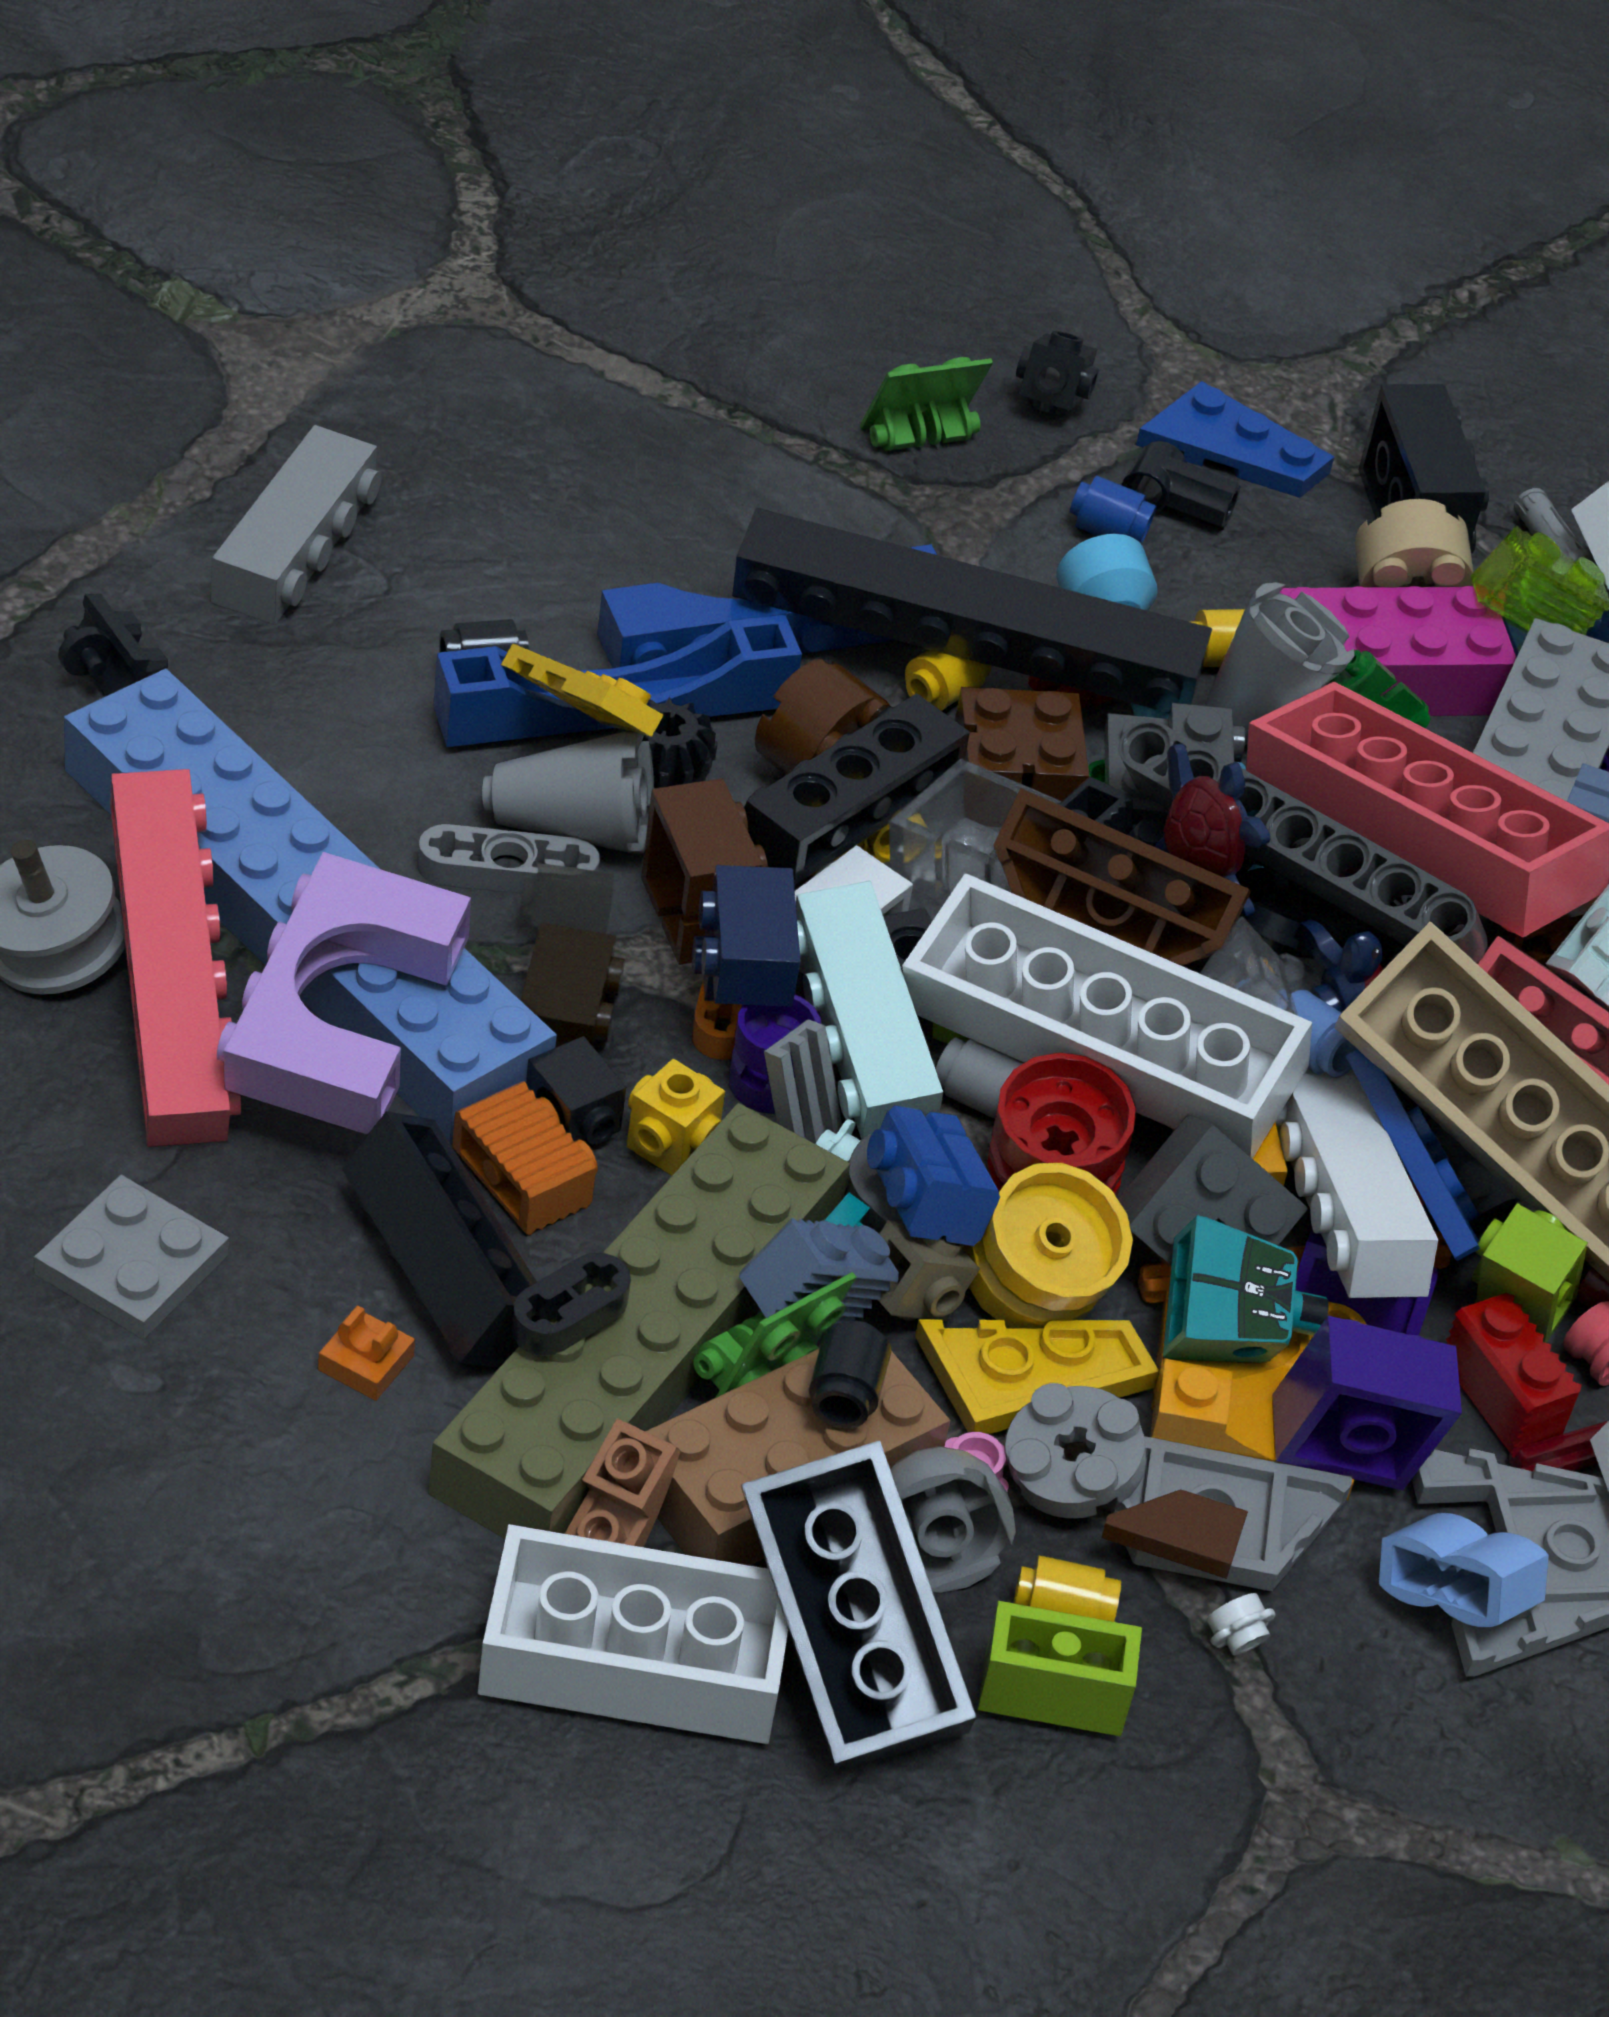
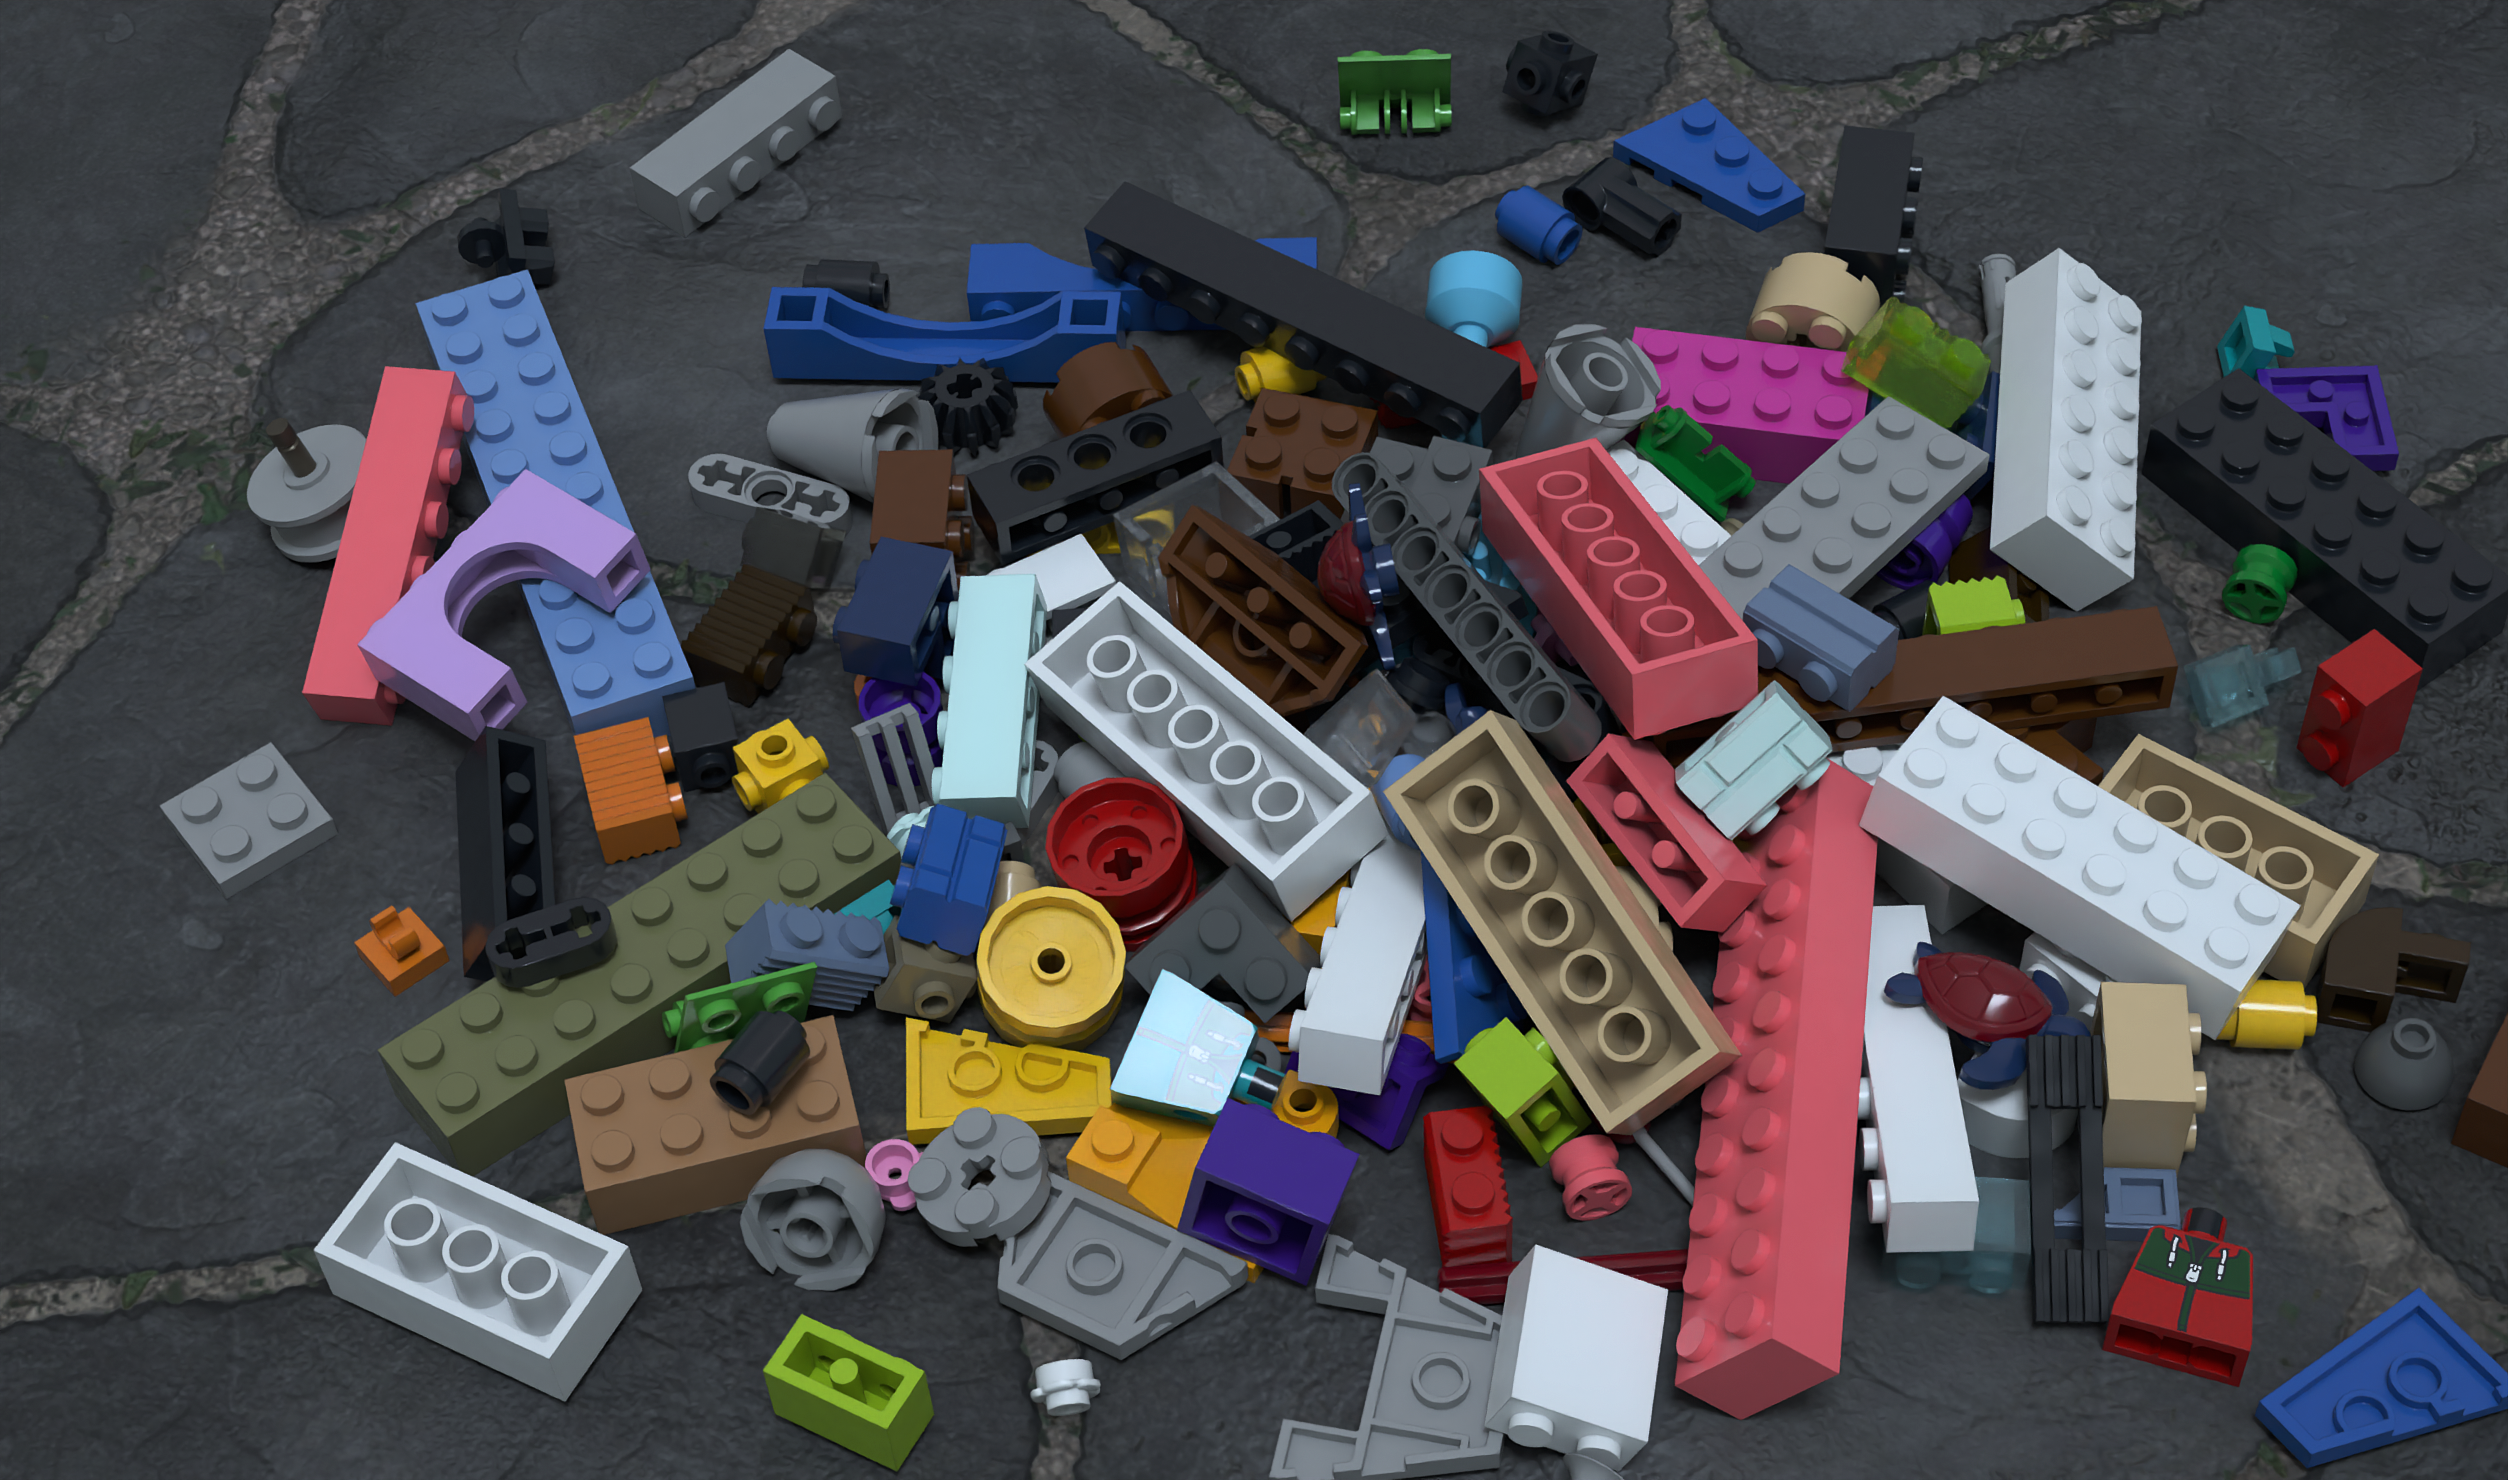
camera: 30 degrees right, 5 degrees up
(601, 698) = (872, 348): yellow wing -> none
(625, 1486) = (535, 1131): nougat slope -> none
(859, 1606) = (668, 1291): black slope -> none
(1068, 1589) = (906, 1323): yellow brick -> none
(1181, 1529) = (1040, 1281): reddish brown tile -> none
(1463, 1569) = (1298, 1382): light blue brick -> none

